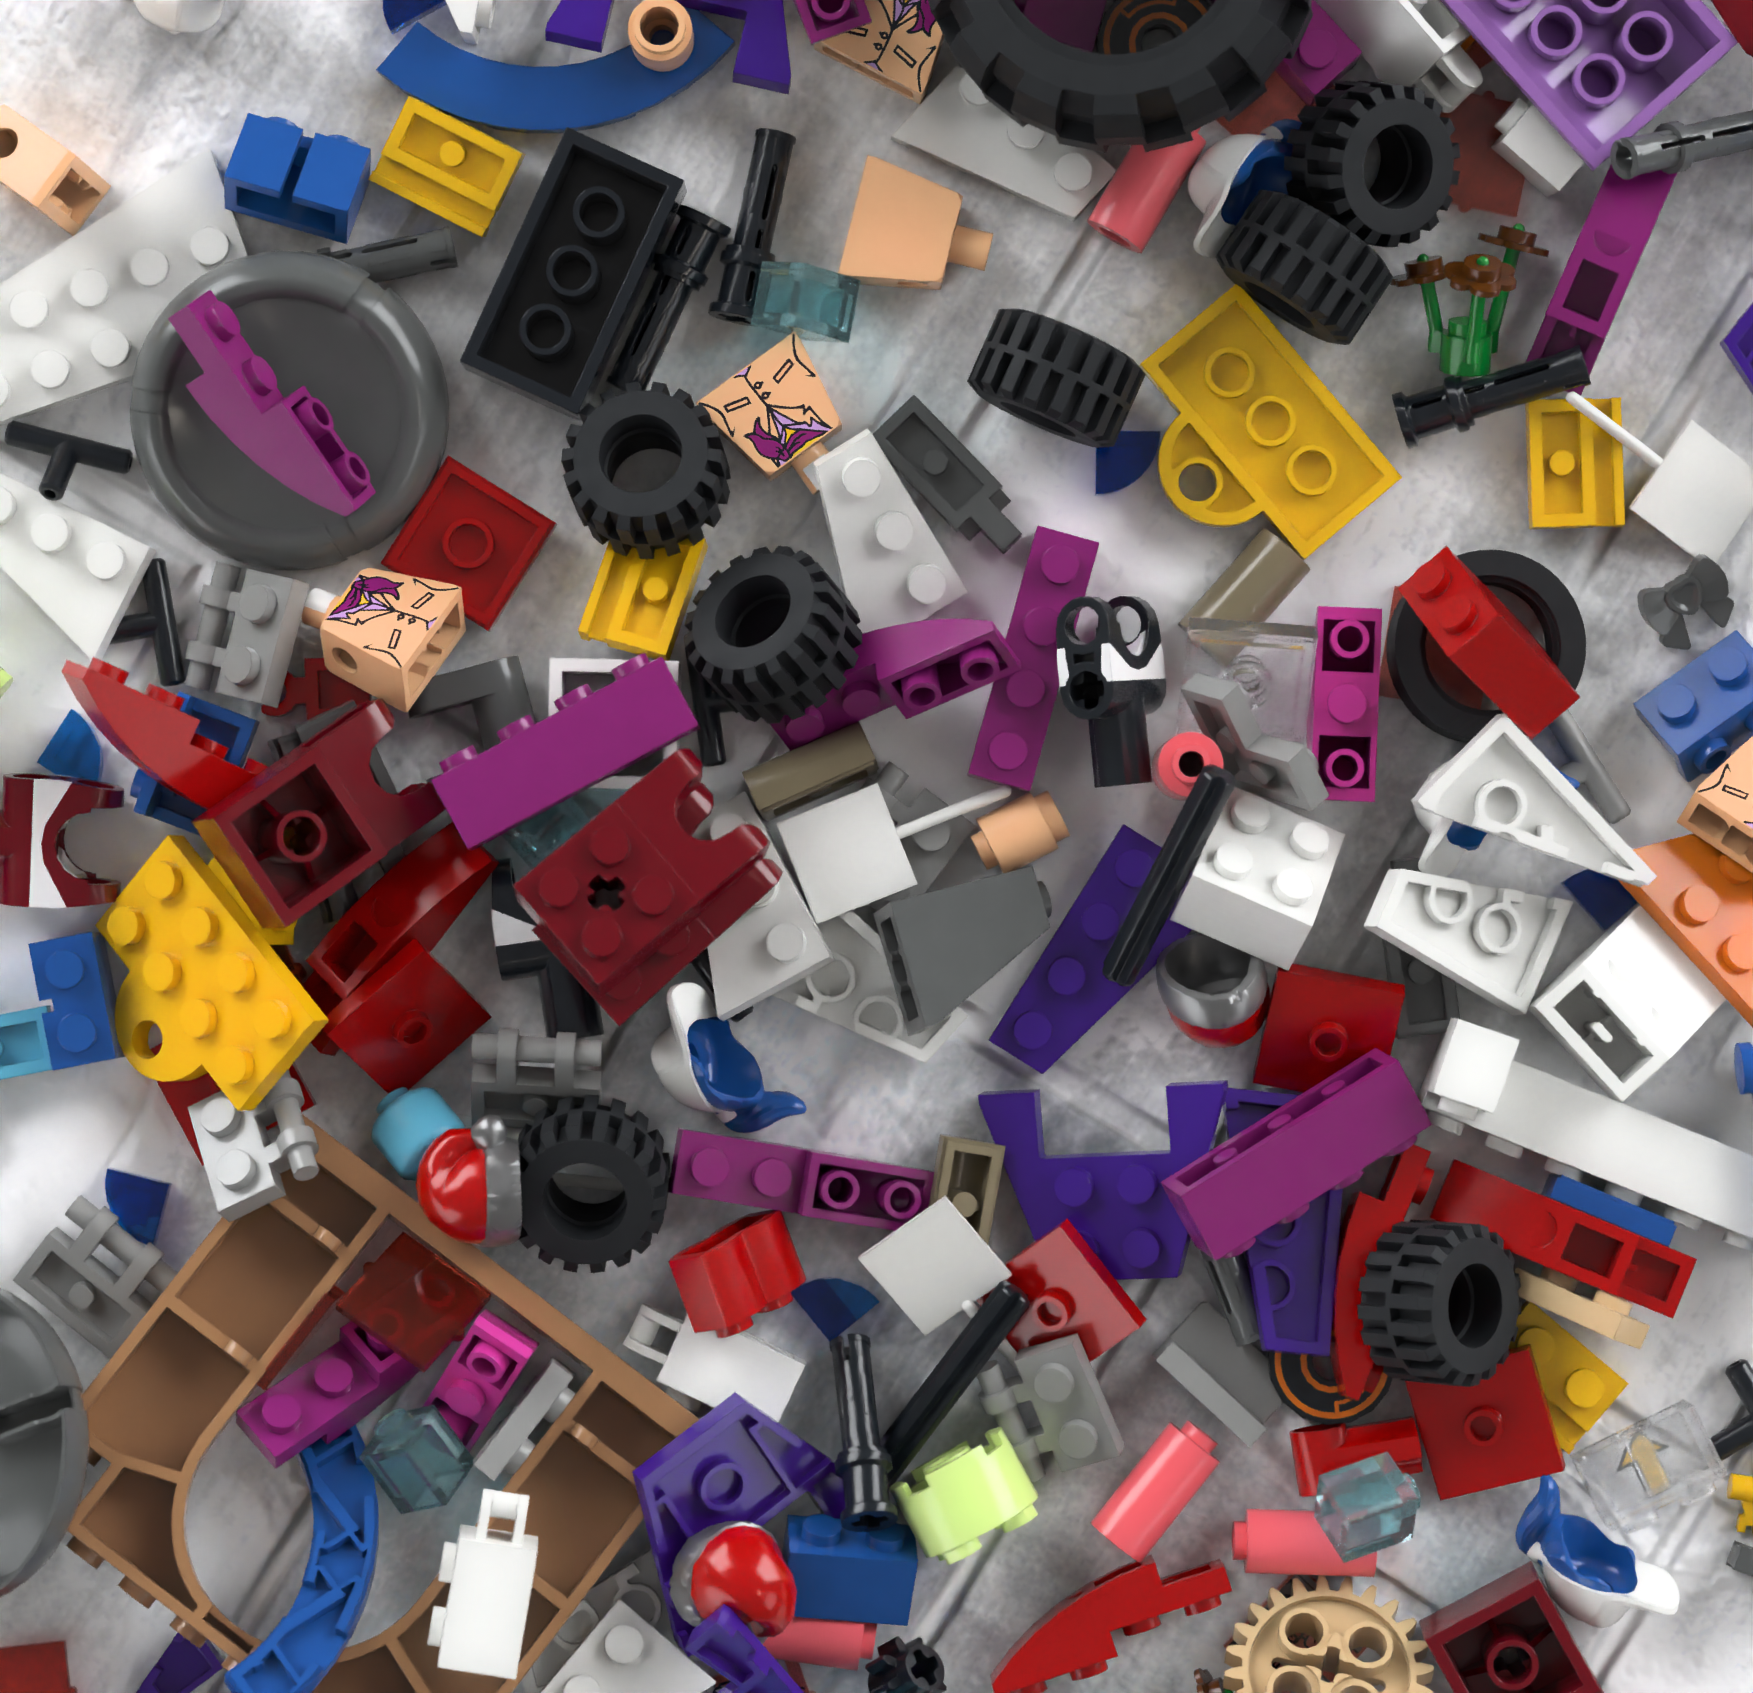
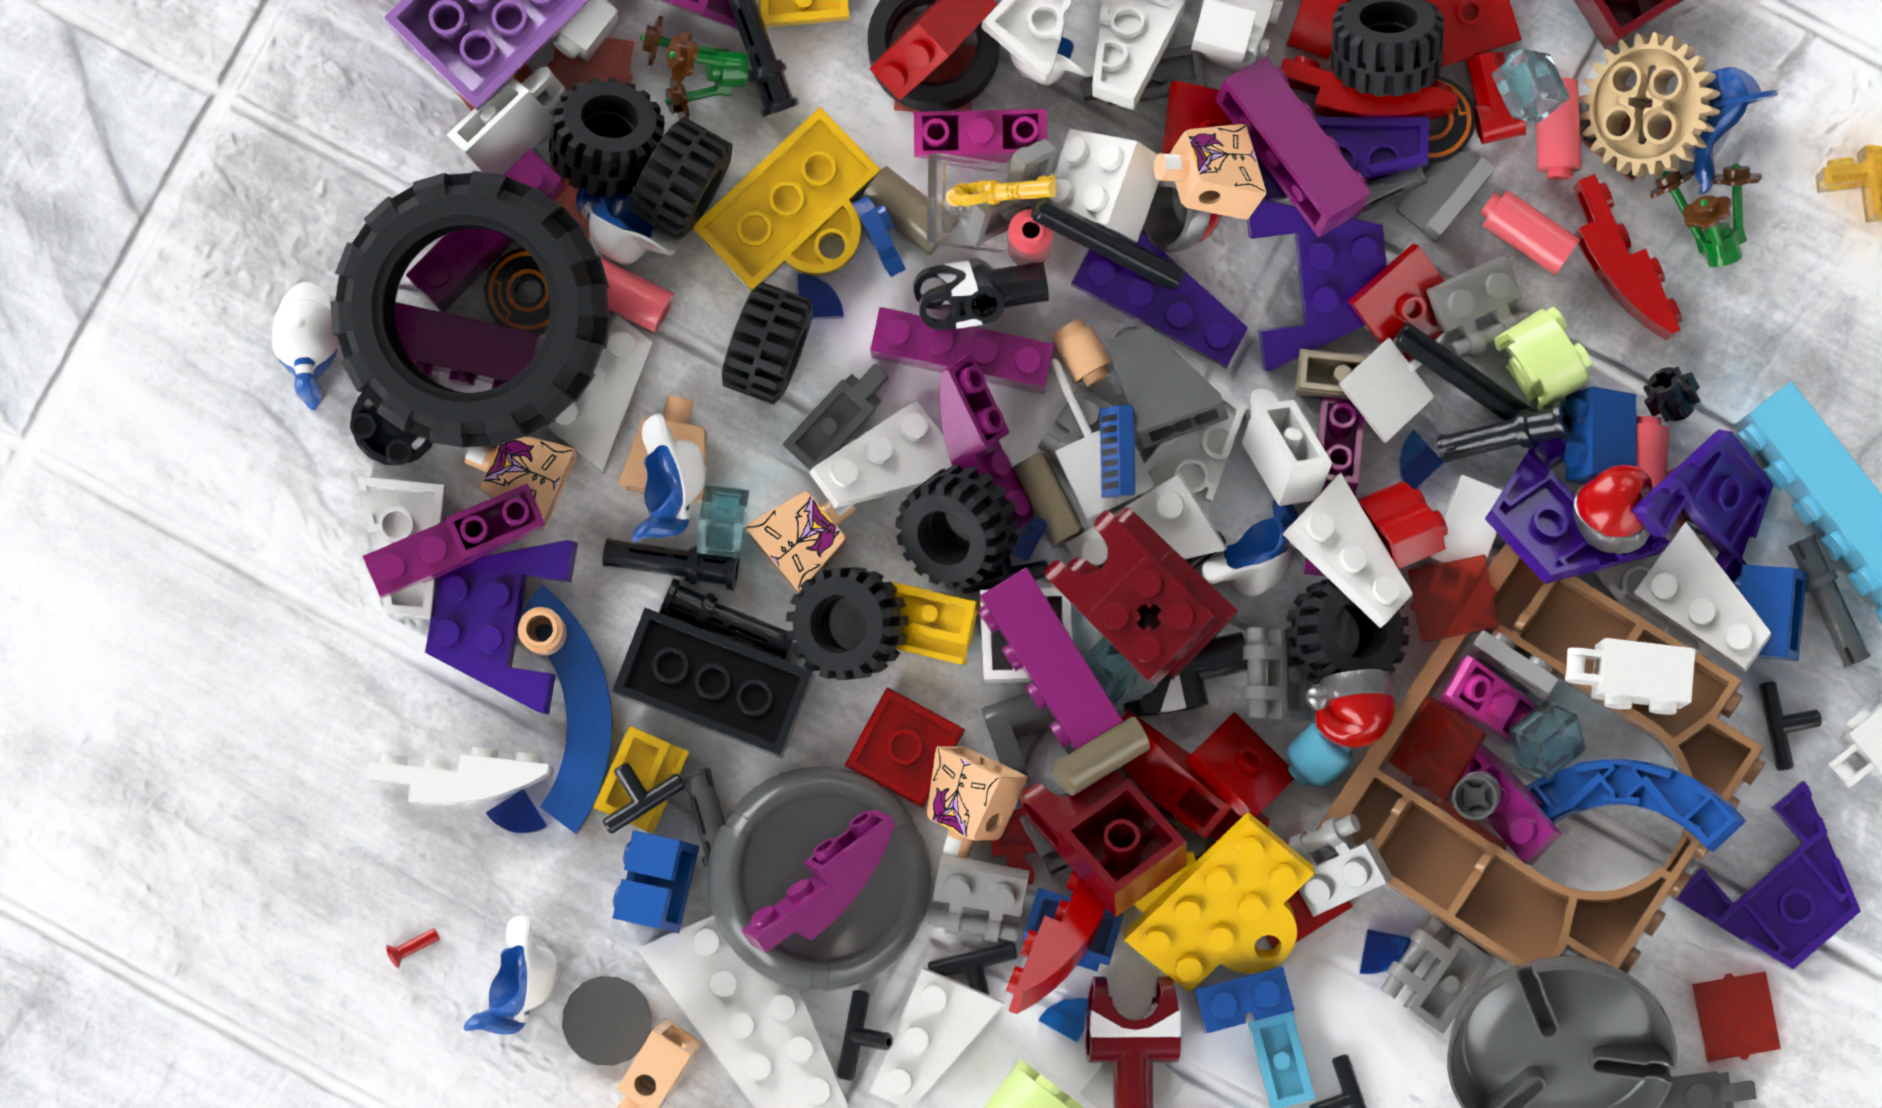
camera: 90 degrees left, 5 degrees down
(110, 101) = (606, 1020): none -> dark grey tile
(324, 1341) = (1471, 800): none -> dark grey wheel
(414, 164) = (641, 800): none -> black piece
(421, 816) = (1101, 756): none -> dark tan brick
(625, 1339) = (1453, 598): none -> clear red piece
(697, 1192) = (1349, 552): none -> white wing
(752, 737) = (1029, 538): none -> clear blue tile
(858, 1112) = (1284, 449): none -> white brick
(859, 229) = (672, 483): none -> hair
(866, 871) = (1117, 451): none -> blue tile
(1220, 547) = (877, 224): none -> blue plate
(1251, 716) = (995, 192): none -> yellow piece
(1264, 1036) = (1214, 171): none -> light nougat torso

